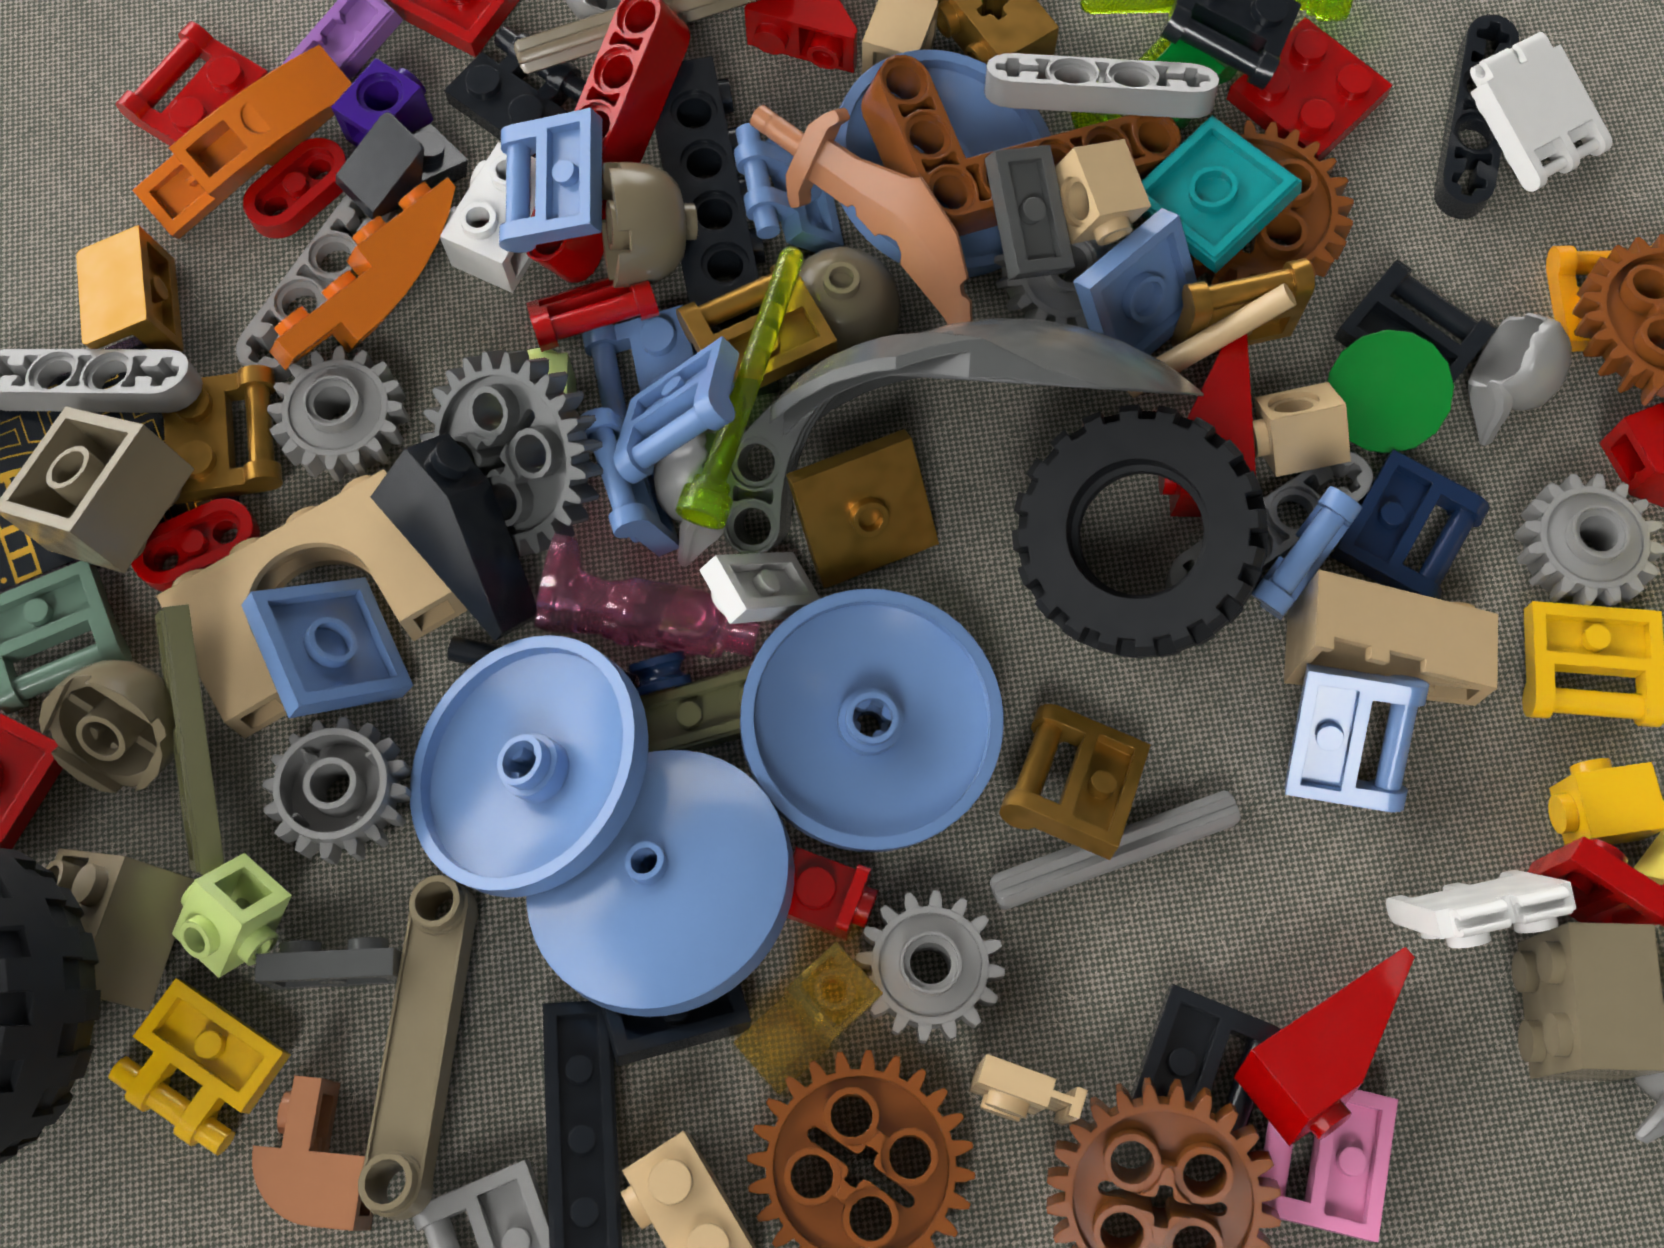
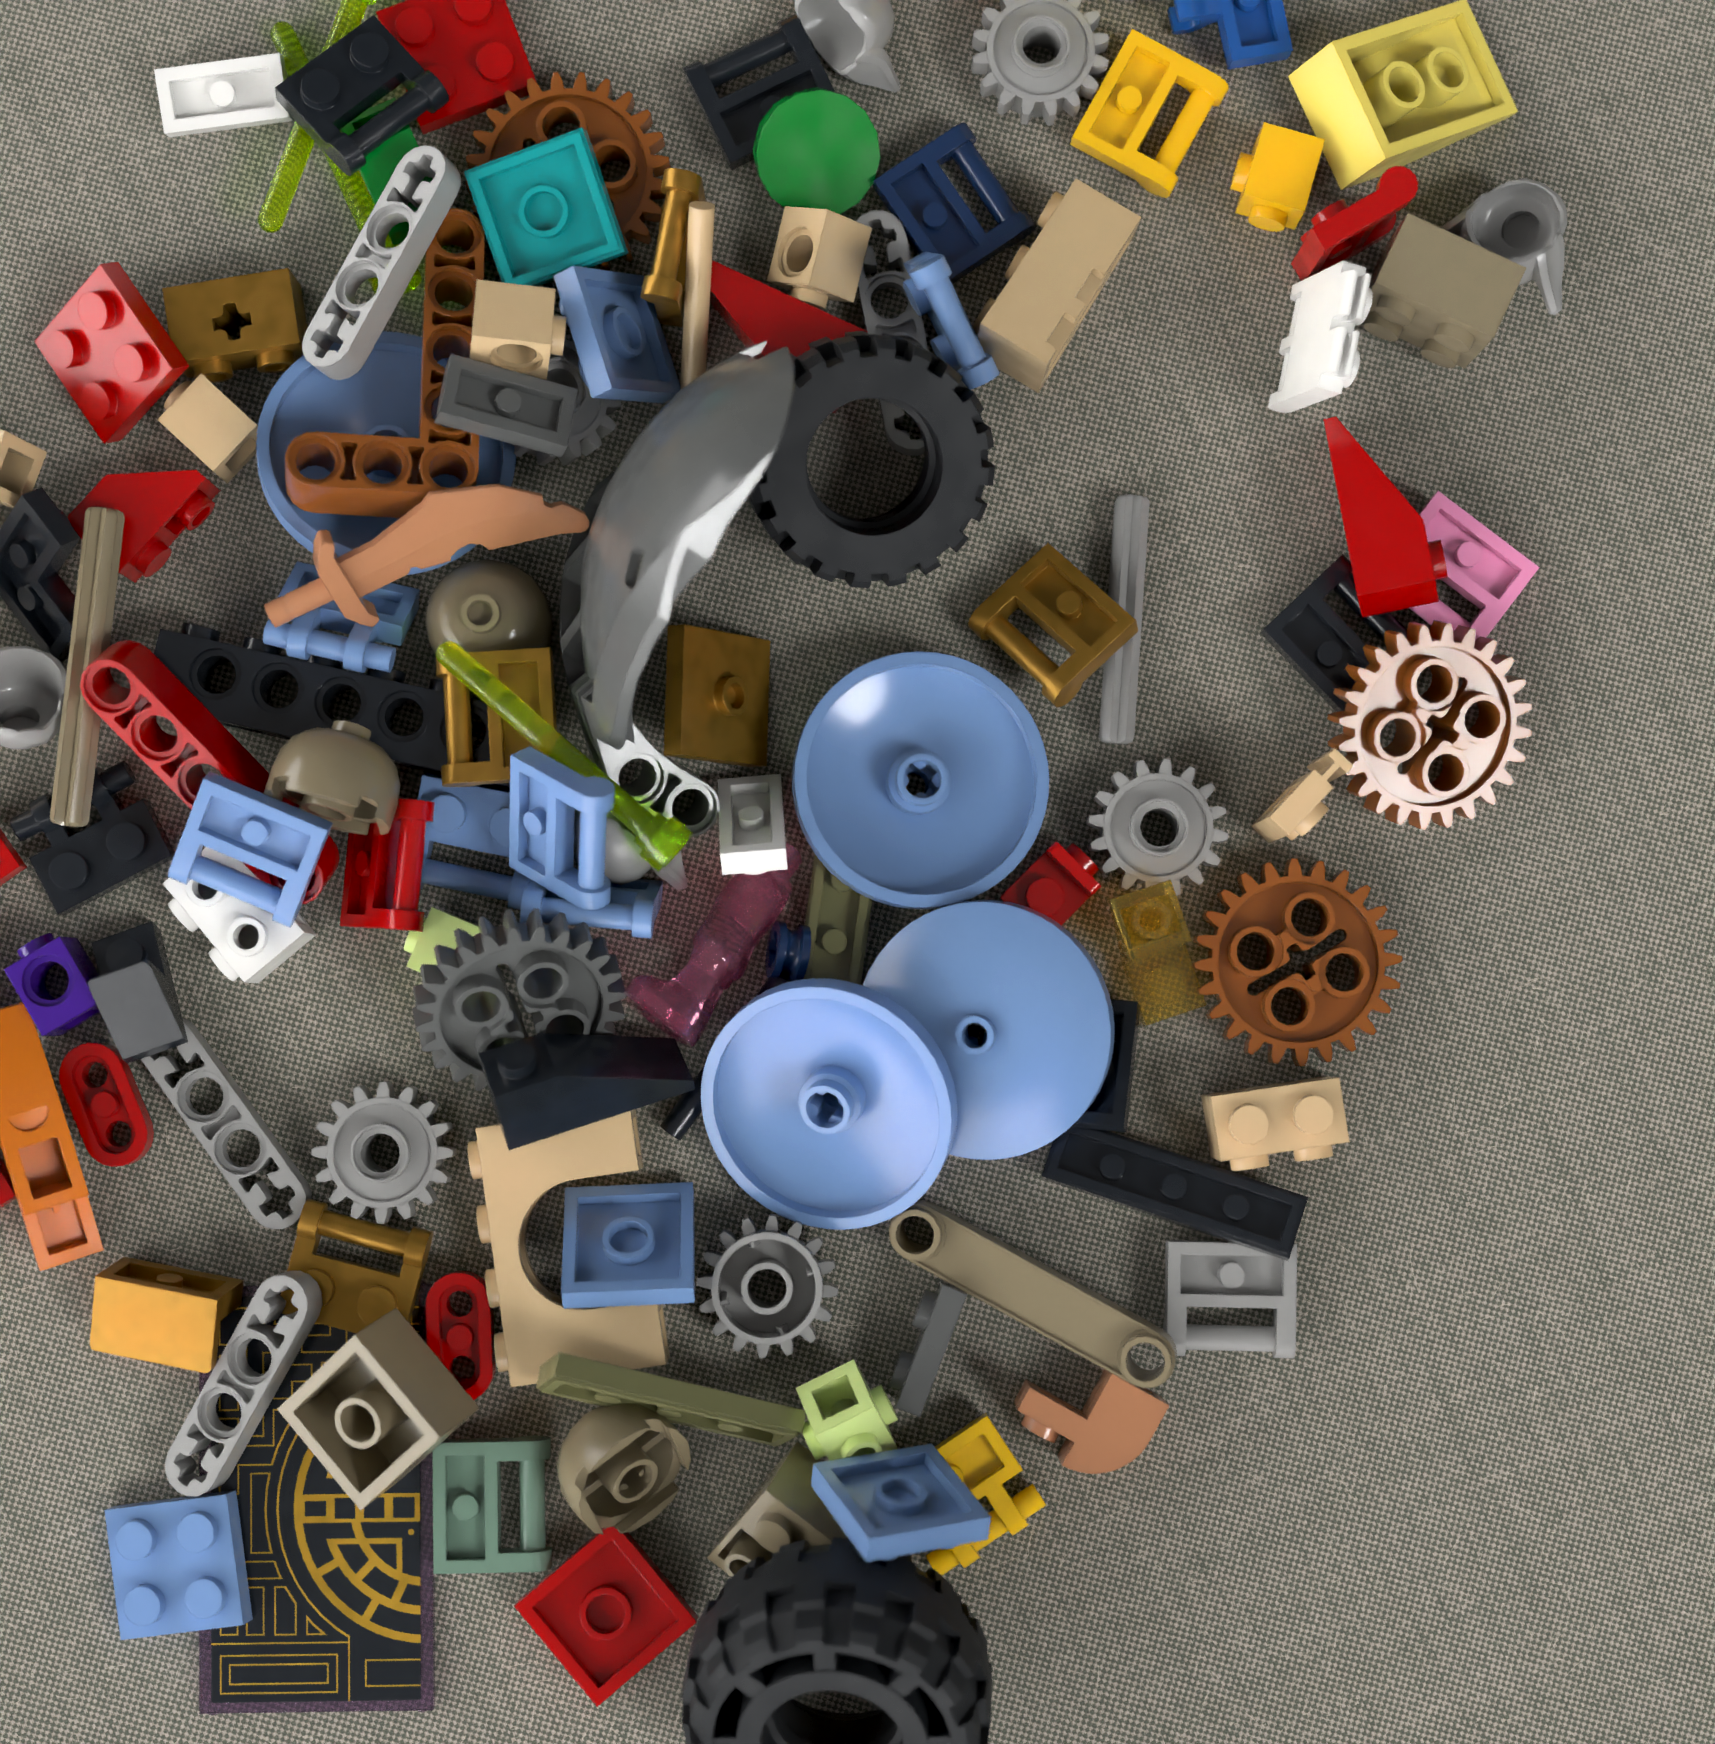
camera: 70 degrees left, 15 degrees up
(148, 986) = (900, 1502): none -> medium blue plate
(386, 264) = (248, 1040): orange slope -> none
(1333, 733) = (1115, 381): plate -> none

